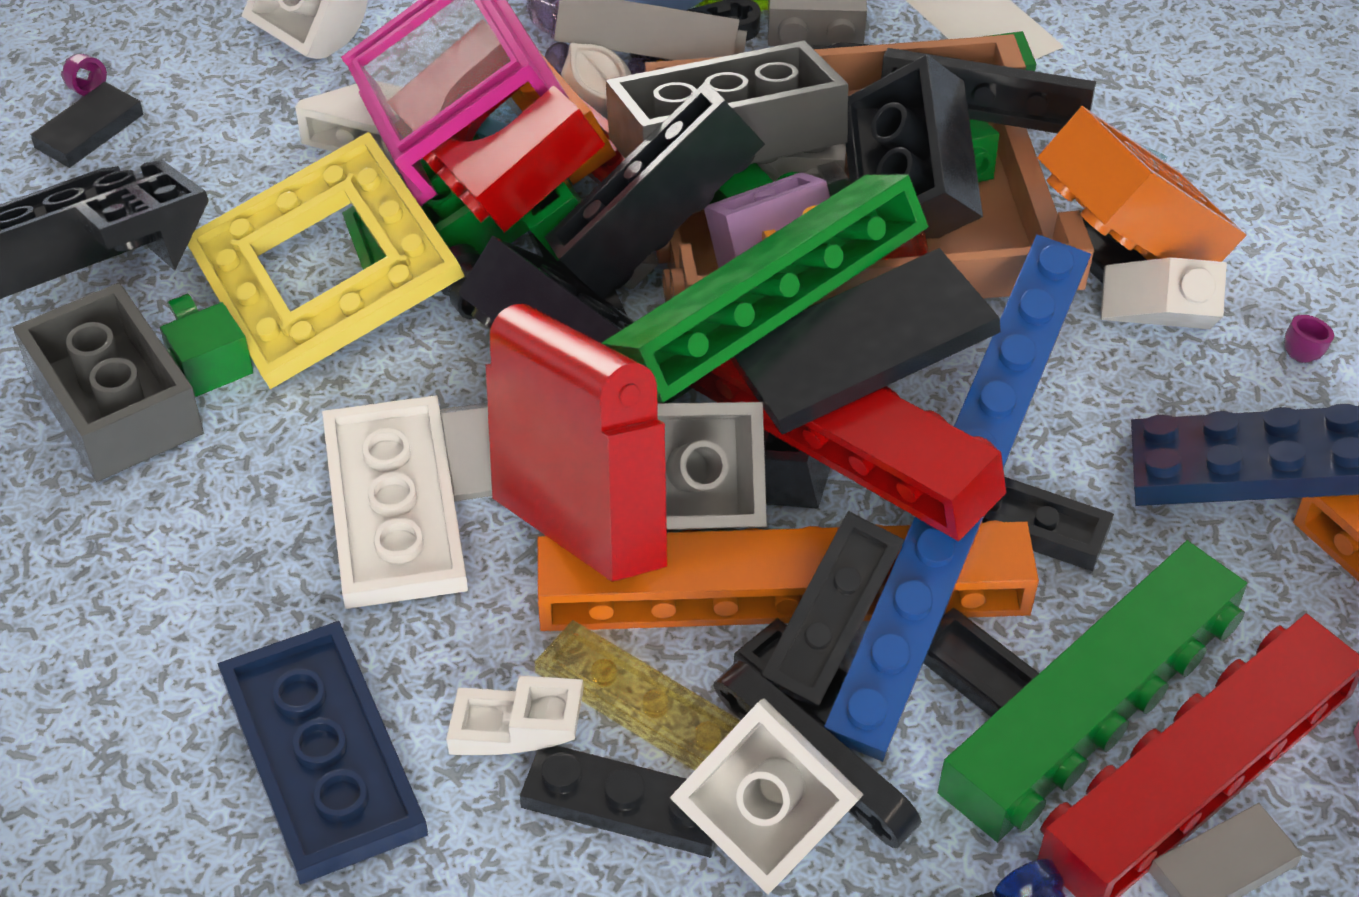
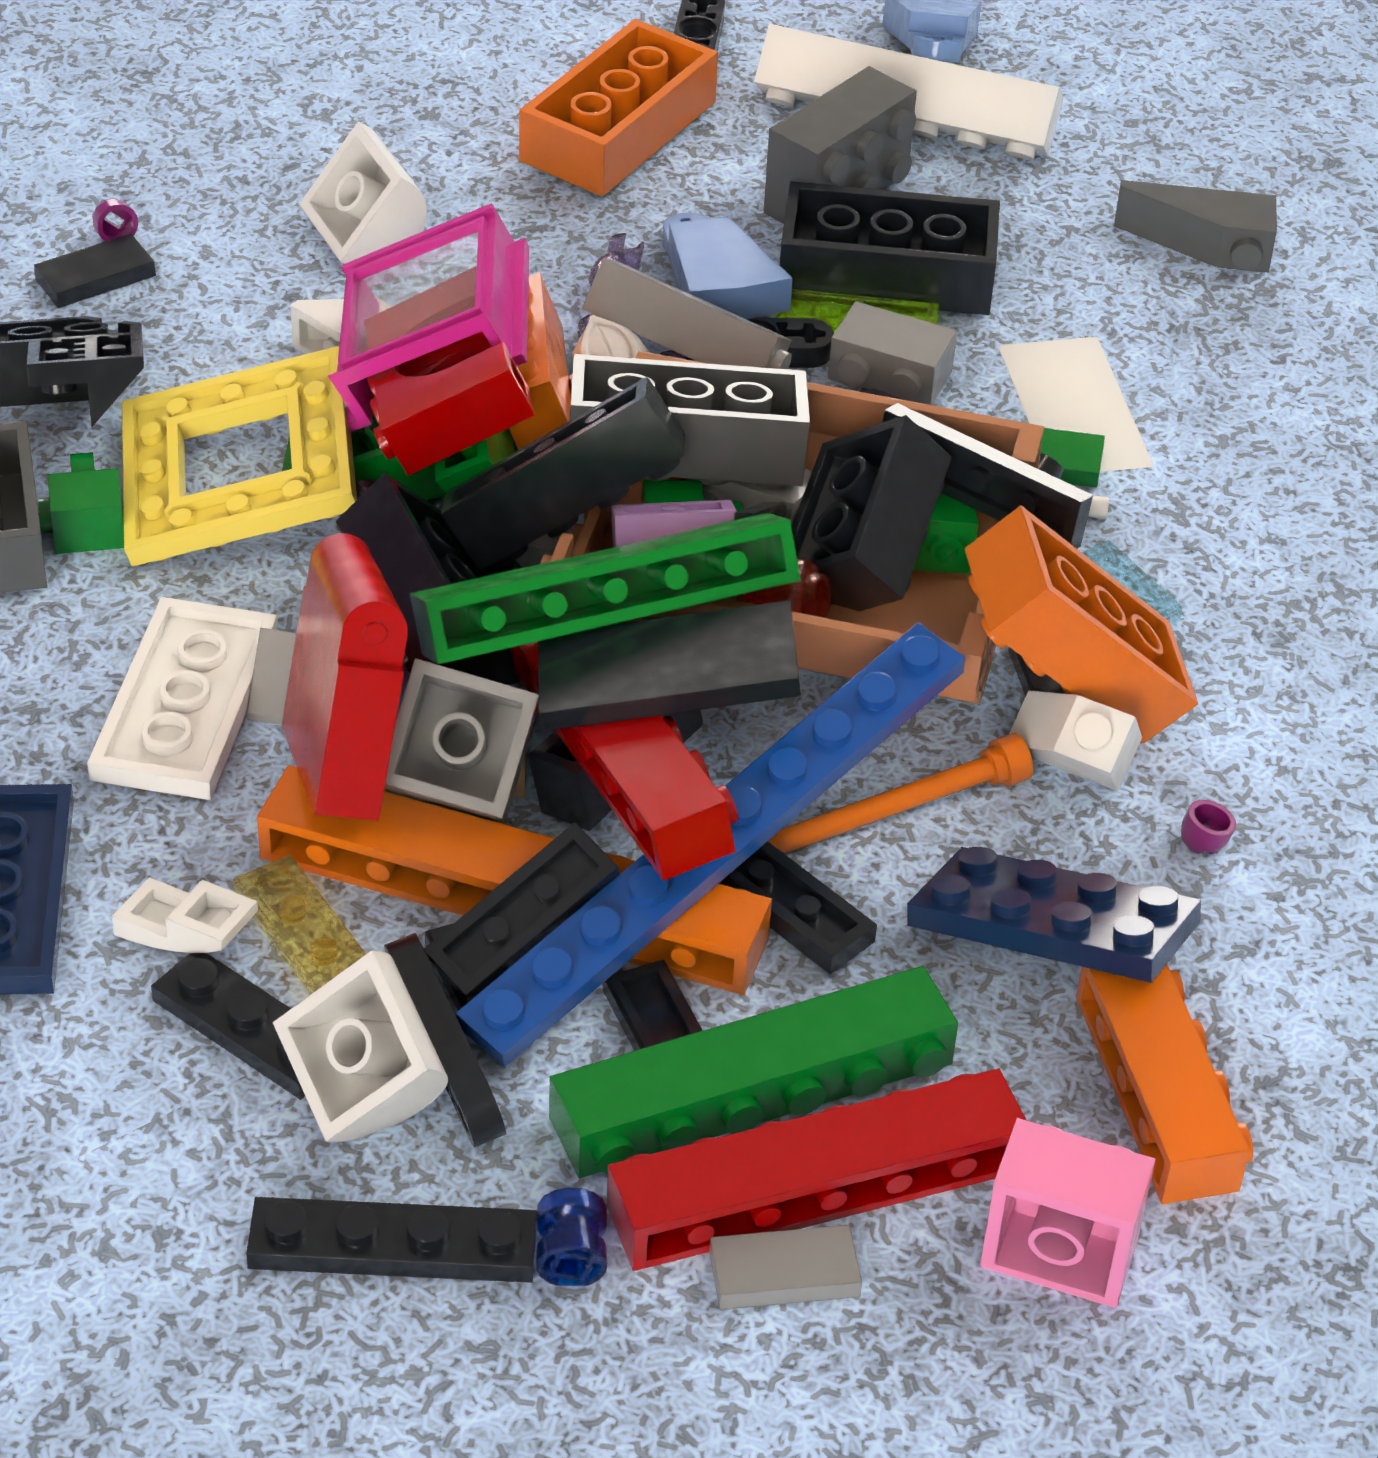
camera: 20 degrees right, 5 degrees down
(1115, 334) = (1004, 761): none -> orange piece

